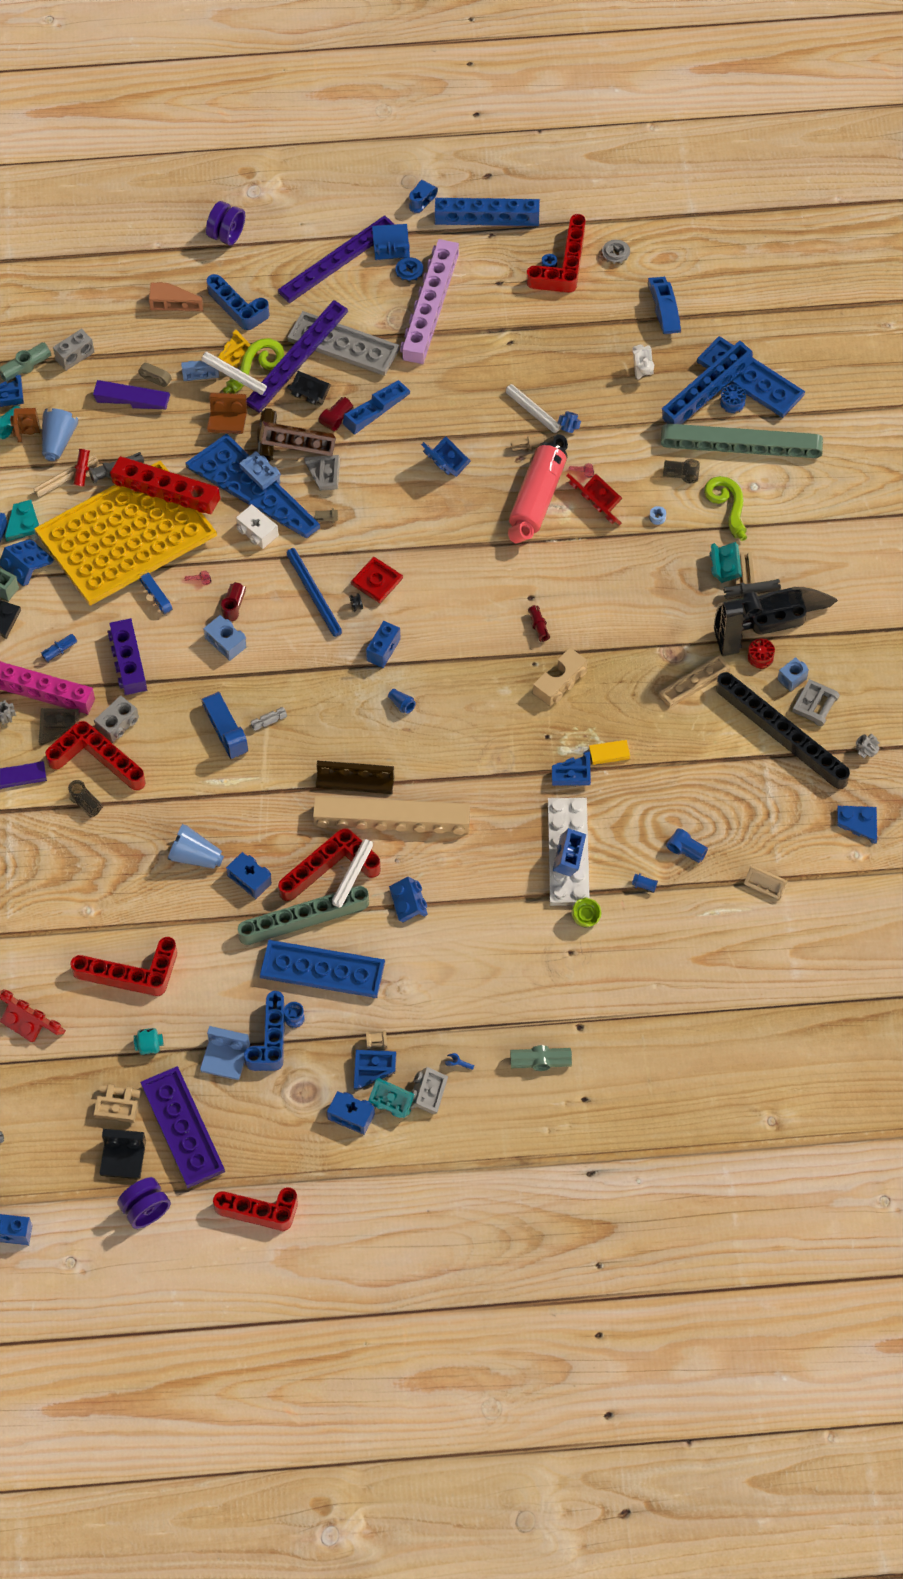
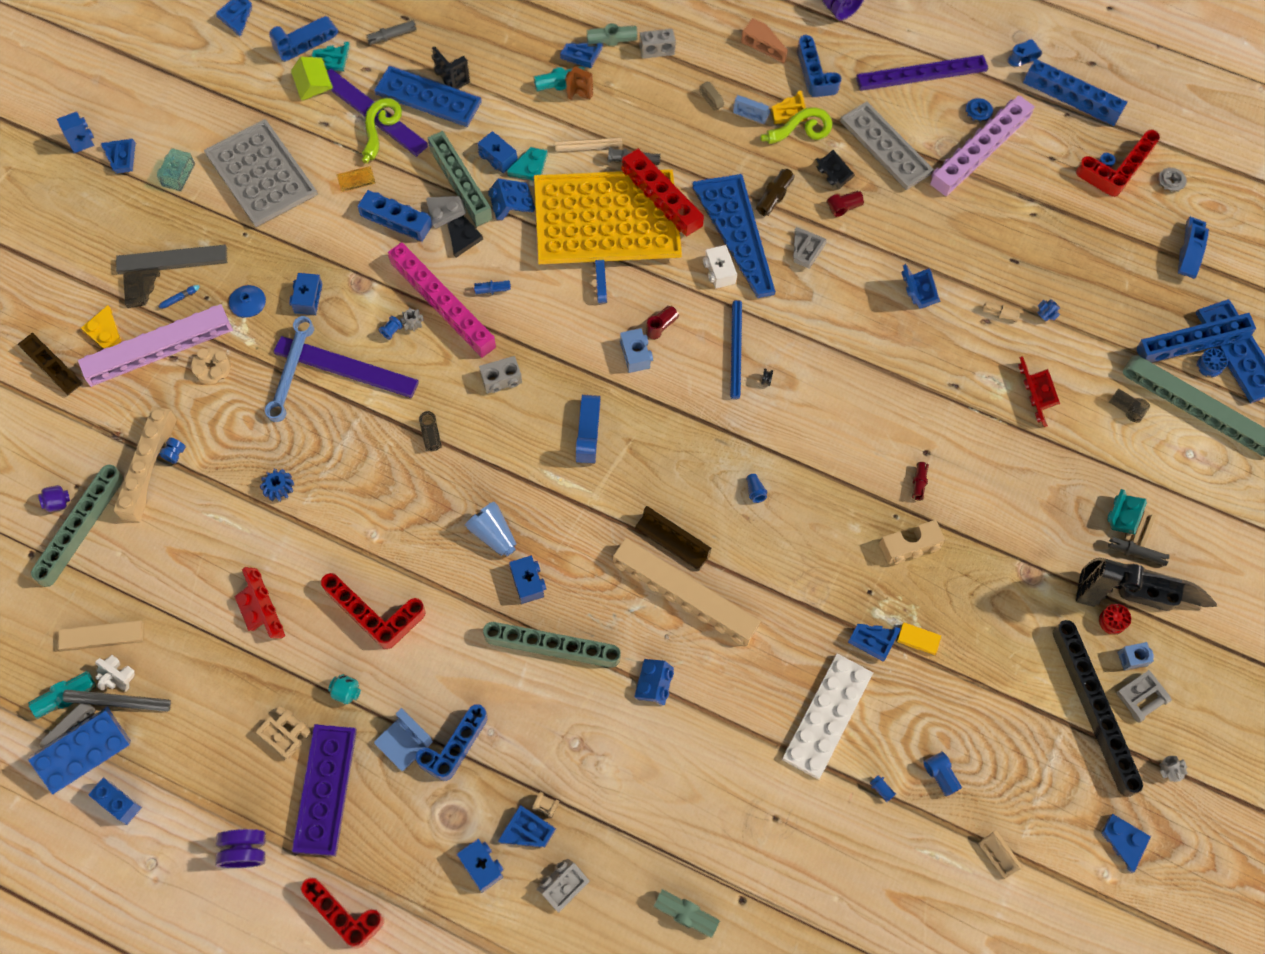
camera: 25 degrees right, 5 degrees up
(56, 432) = (600, 104): medium blue cone -> none
(56, 722) = (449, 353): clear smoke wing -> none
(81, 467) = (603, 143): red pin -> none
(99, 751) = (471, 396): red beam -> none
(122, 1153) = (256, 787): black bracket -> none
(125, 394) = (685, 107): dark purple slope -> none
(135, 681) = (538, 349): dark purple brick -> none
(203, 576) = (650, 287): clear pink hand -> none
(227, 413) = (752, 156): dark orange bracket -> none
(234, 373) = (776, 124): white axle -> none
(260, 470) = (751, 219): medium blue bracket -> none
(268, 718) = (630, 443): light grey axle -> none
(296, 1011) = (487, 736): blue wheel -> none
(297, 355) = (839, 136): dark purple tile -> none
(297, 438) = (798, 207): reddish brown brick -> none
(322, 969) = (539, 706): blue plate -> none
(327, 861) = (602, 604): red beam -> none
(328, 515) = (786, 287): dark tan pin -> none
(352, 873) = (615, 630): white axle -> none
(376, 579) = (797, 366): red plate -> none
(380, 402) = (888, 212): blue slope -> none
(383, 644) = (768, 427): blue brick -> none
(391, 241) = (976, 79): blue hinge -> none
(392, 1098) = (523, 875): teal bracket -> none
(457, 1061) = (607, 870): blue hand -> none
(533, 409) = (1022, 282): white axle -> none
(538, 488) = (986, 356): coral piece -> none
(569, 852) = (825, 721): blue brick -> none
(586, 912) = (810, 788): lime hair -> none
(587, 469) = (1042, 360): clear pink hand -> none
(642, 361) = (1146, 288): white hips -> none
(660, 510) = (1084, 430): light blue bush -> none
(693, 681) = (1036, 612): tan tile -> none
(735, 524) = (1154, 480): lime plant -> none

